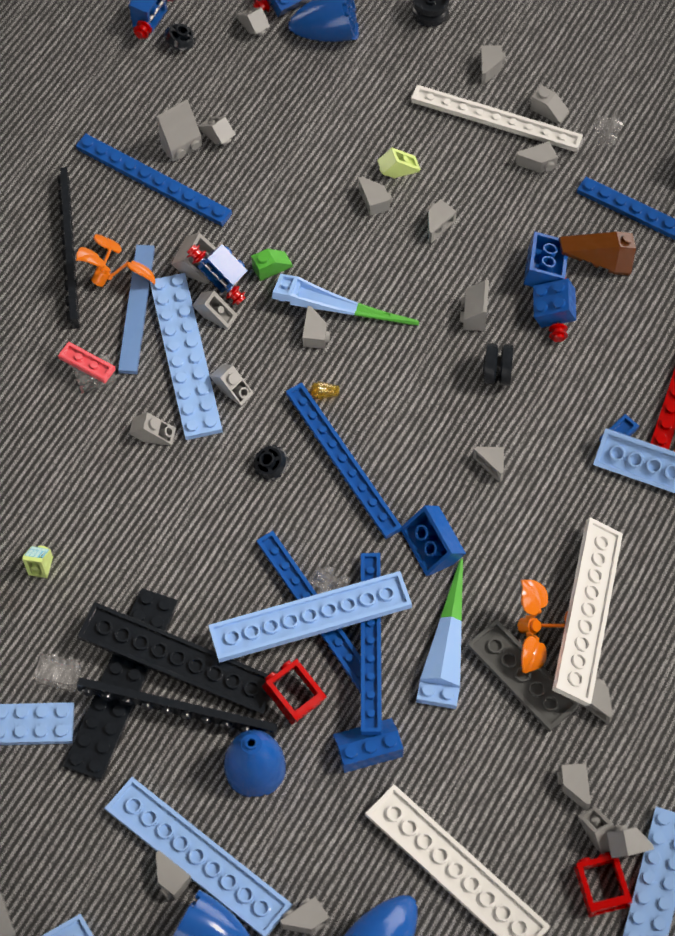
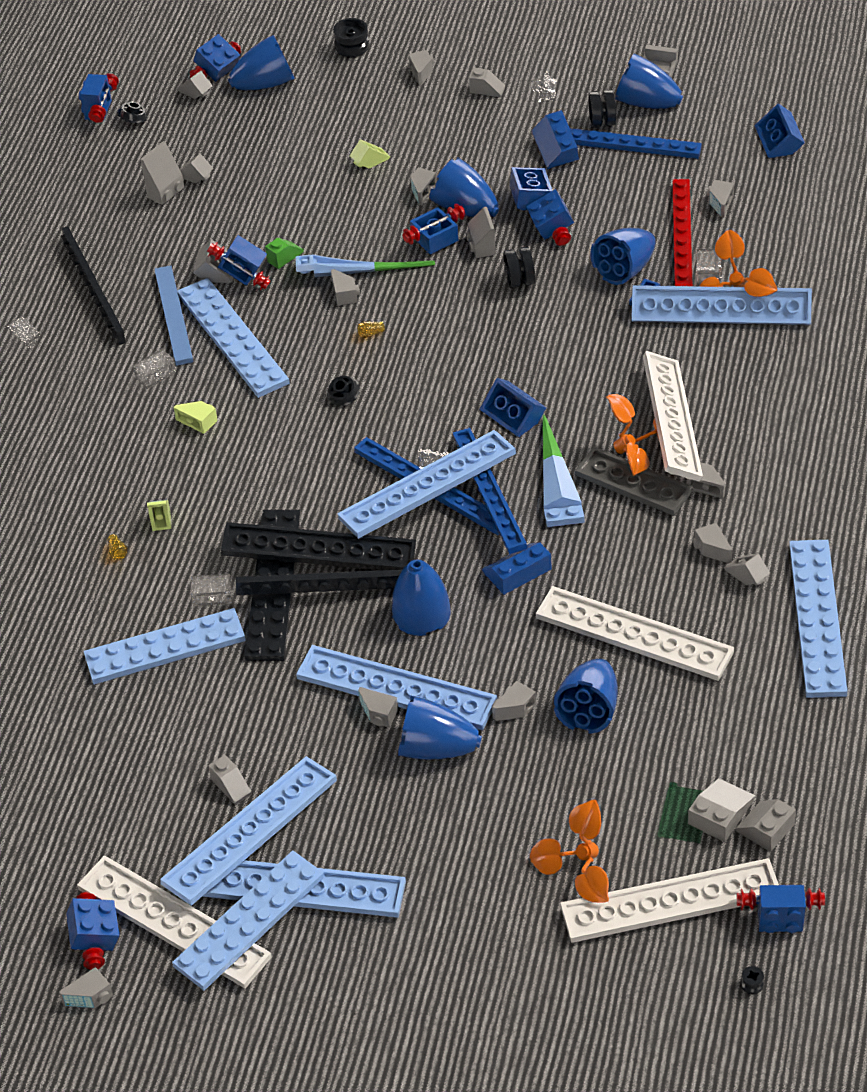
camera: 15 degrees left, 15 degrees down
(86, 362) = (145, 357): coral tile -> none
(102, 272) = (132, 295): orange plant -> none
(116, 447) = (196, 415): none -> yellowish green slope
(152, 429) = (224, 394): light grey slope -> none
(154, 180) = (150, 220): blue plate -> none
(215, 309) = (246, 295): light grey slope -> none
(231, 383) = (284, 343): light grey slope -> none
(291, 714) = (430, 554): red window -> none
(344, 461) = (409, 373): blue plate -> none
(374, 196) = (357, 182): light grey slope -> none
(430, 285) = (435, 228): none -> blue brick
(477, 246) = (463, 186): none -> blue cylinder
(491, 459) = (540, 339): light grey slope -> none
(496, 118) = (442, 103): white plate -> none
(538, 158) = (491, 122): light grey slope -> none
(593, 205) = (555, 140): none -> blue slope
(607, 905) = (774, 621): red window -> none
(608, 249) = (580, 165): reddish brown wedge -> none
(613, 379) = (622, 253): none -> blue cylinder
(627, 841) = (776, 563): light grey slope -> none
(656, 179) = (602, 109): none -> black wheel

